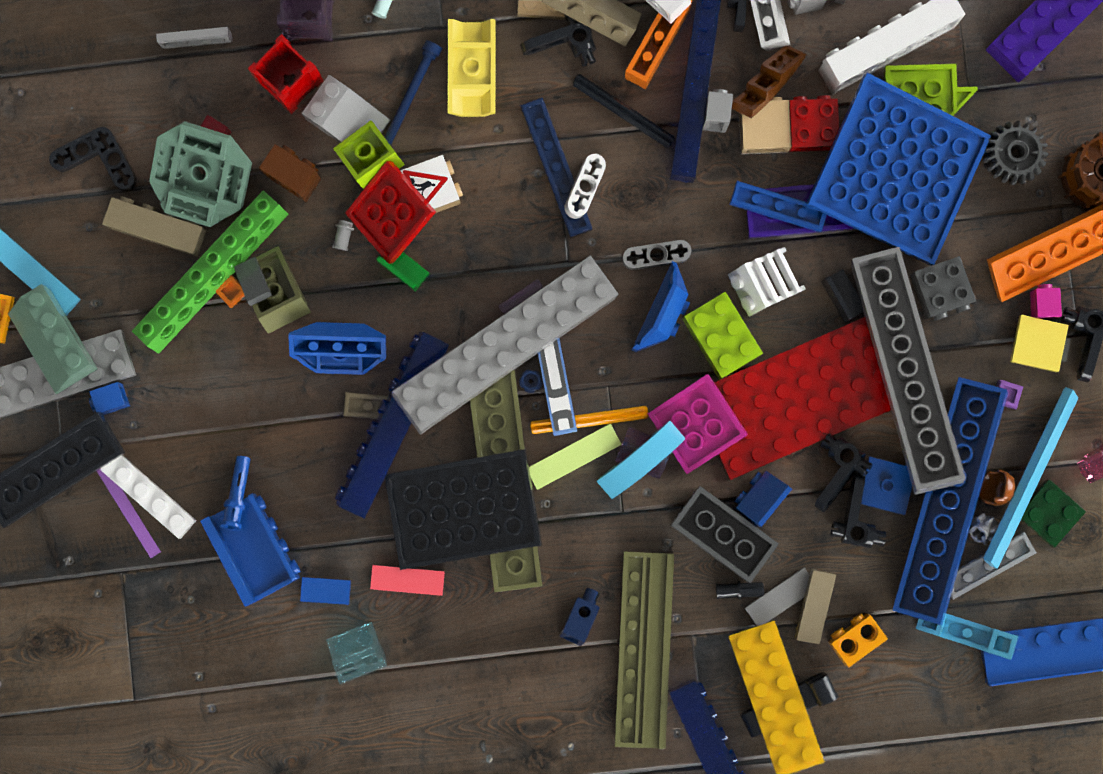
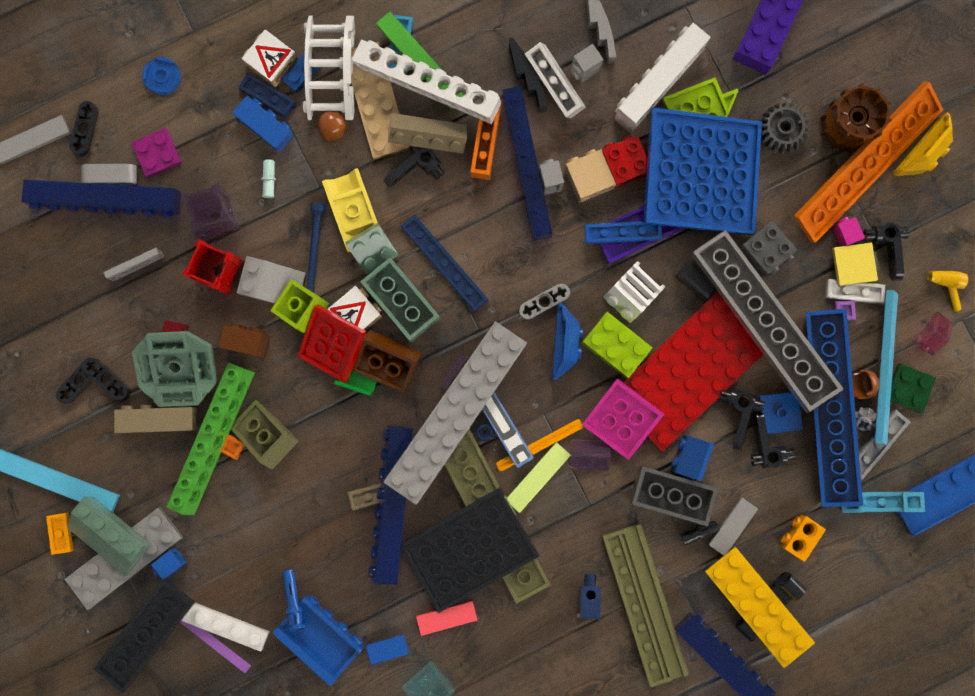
camera: 20 degrees left, 0 degrees up
(252, 281) = (245, 434): dark grey tile -> none
(338, 347) = (329, 460): blue wedge -> none
(342, 235) = (301, 373): light grey pin -> none
(447, 256) = (387, 361): none -> reddish brown slope
(477, 119) = (371, 248): none -> sand green plate
(489, 191) = (400, 299): none -> sand green brick
(593, 179) = (476, 262): white beam -> none
(623, 111) = (479, 202): black axle -> none
(641, 460) = (591, 462): medium azure slope -> none
(770, 80) = (581, 141): reddish brown slope -> none
(815, 606) = (761, 524): dark tan tile -> none
(1030, 378) = (855, 292): none -> white tile

